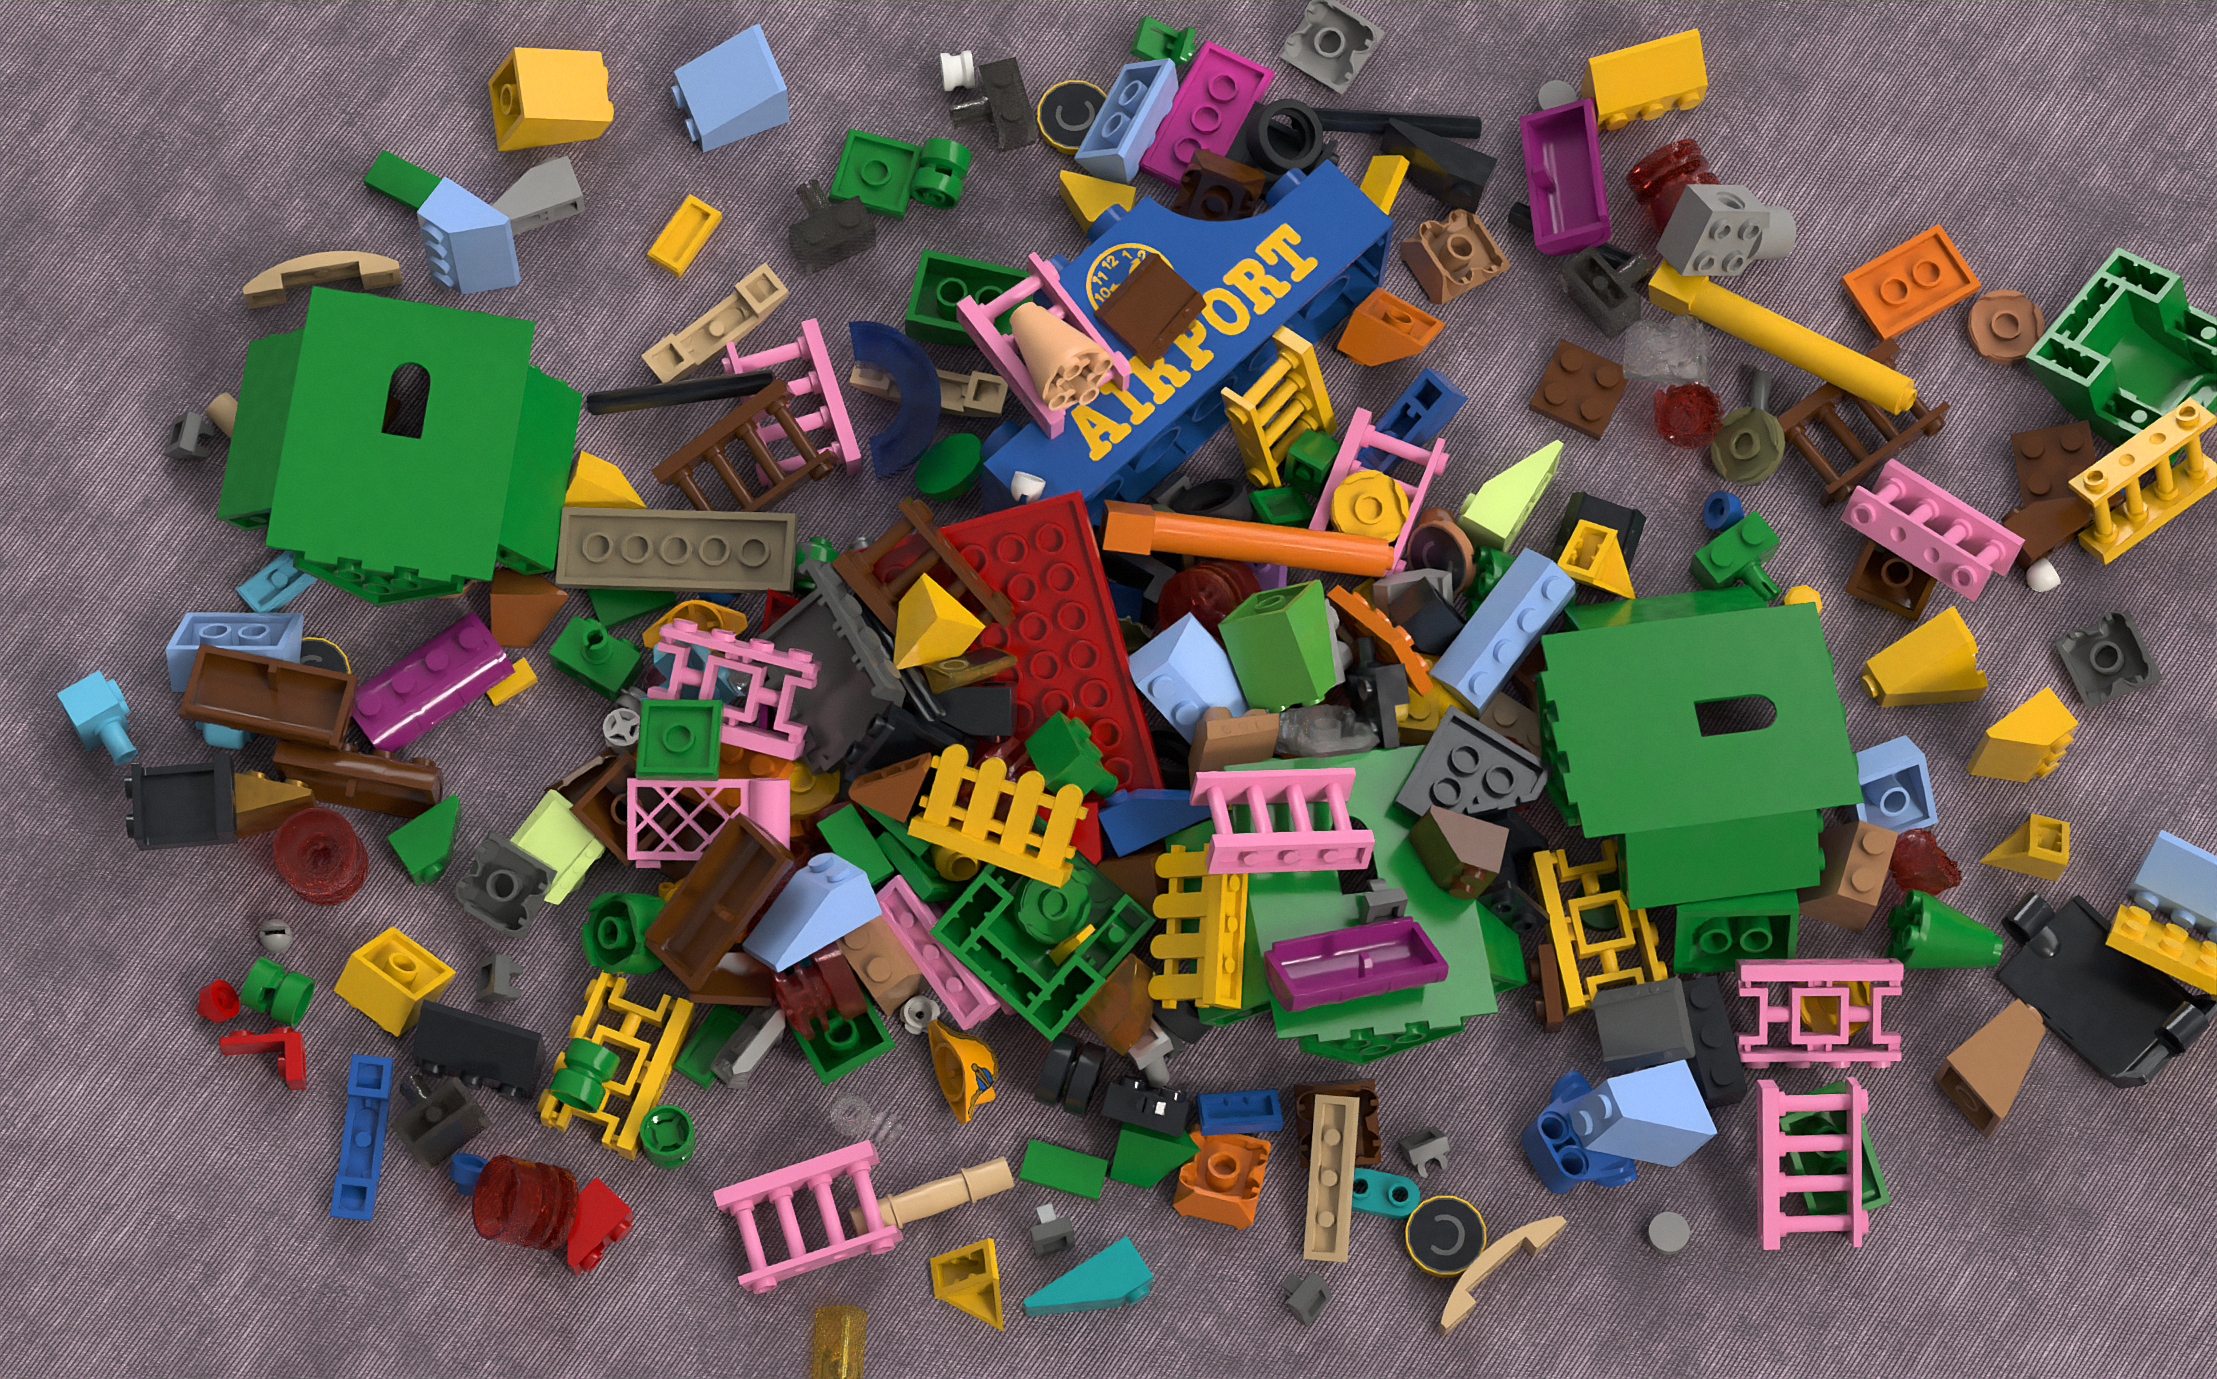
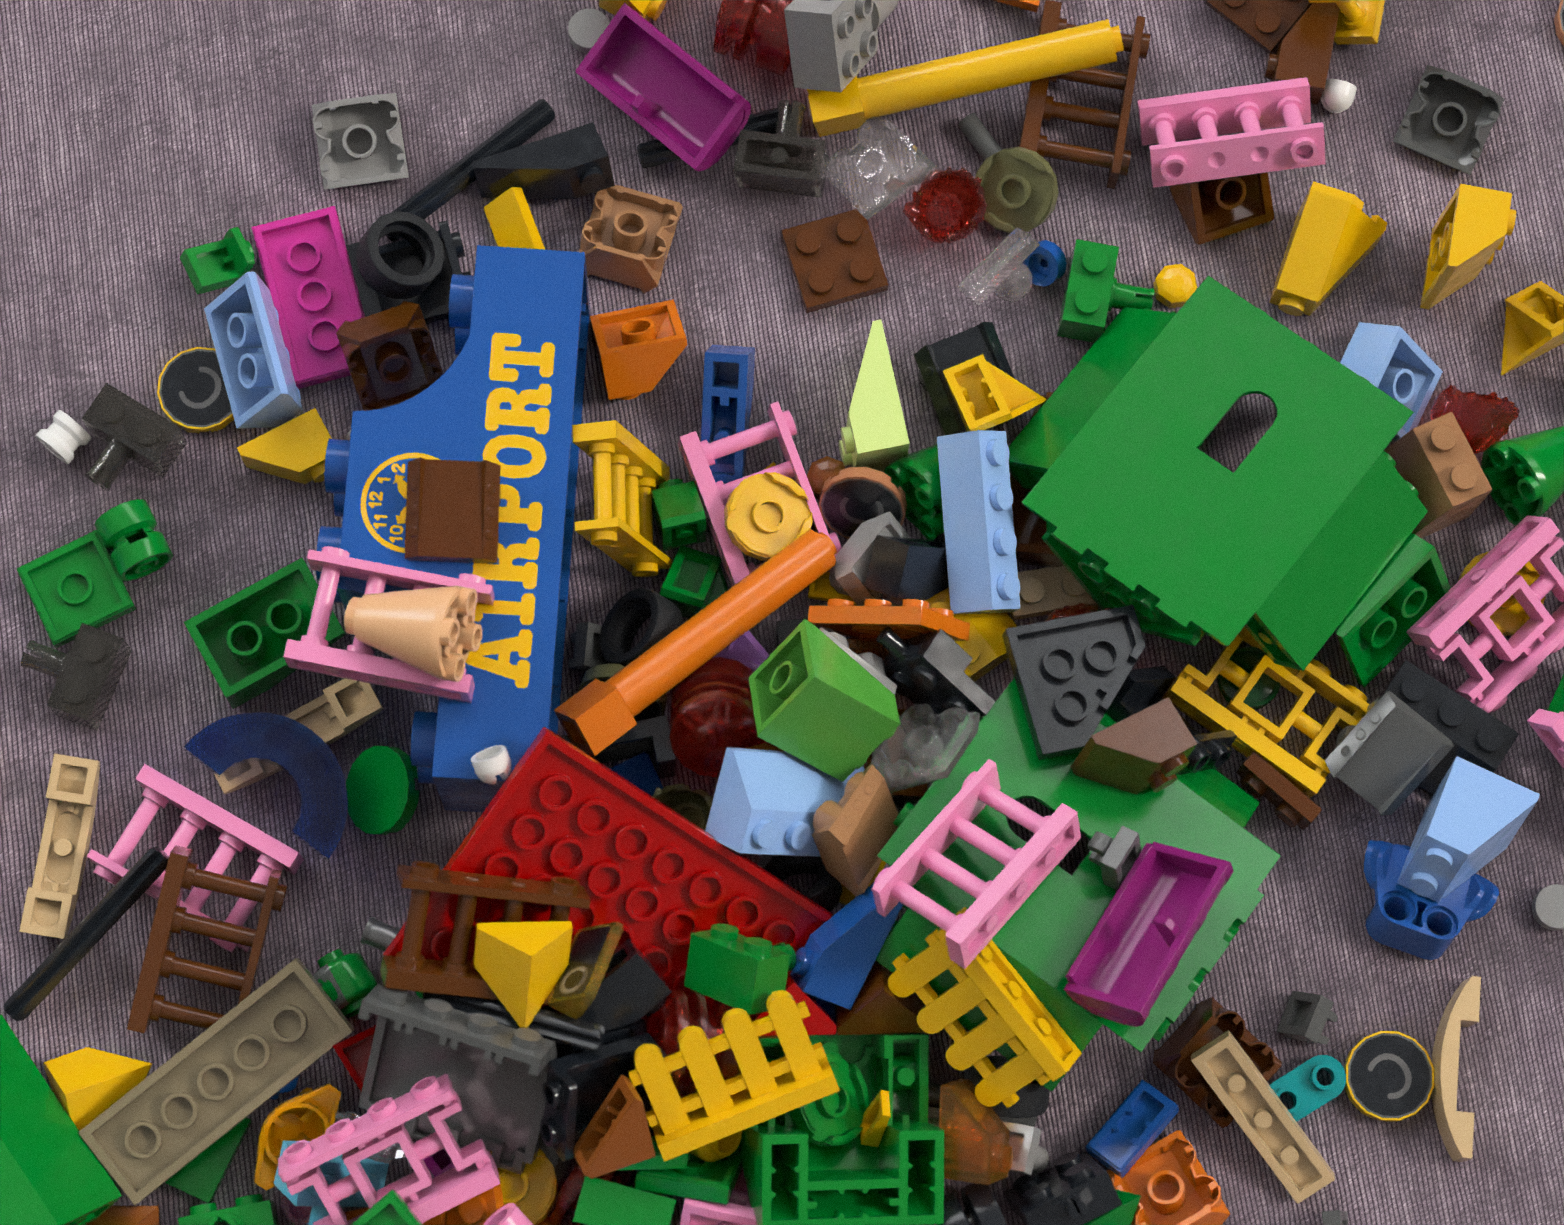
camera: 45 degrees left, 5 degrees up
(1687, 492) = (1002, 271): none -> clear tile

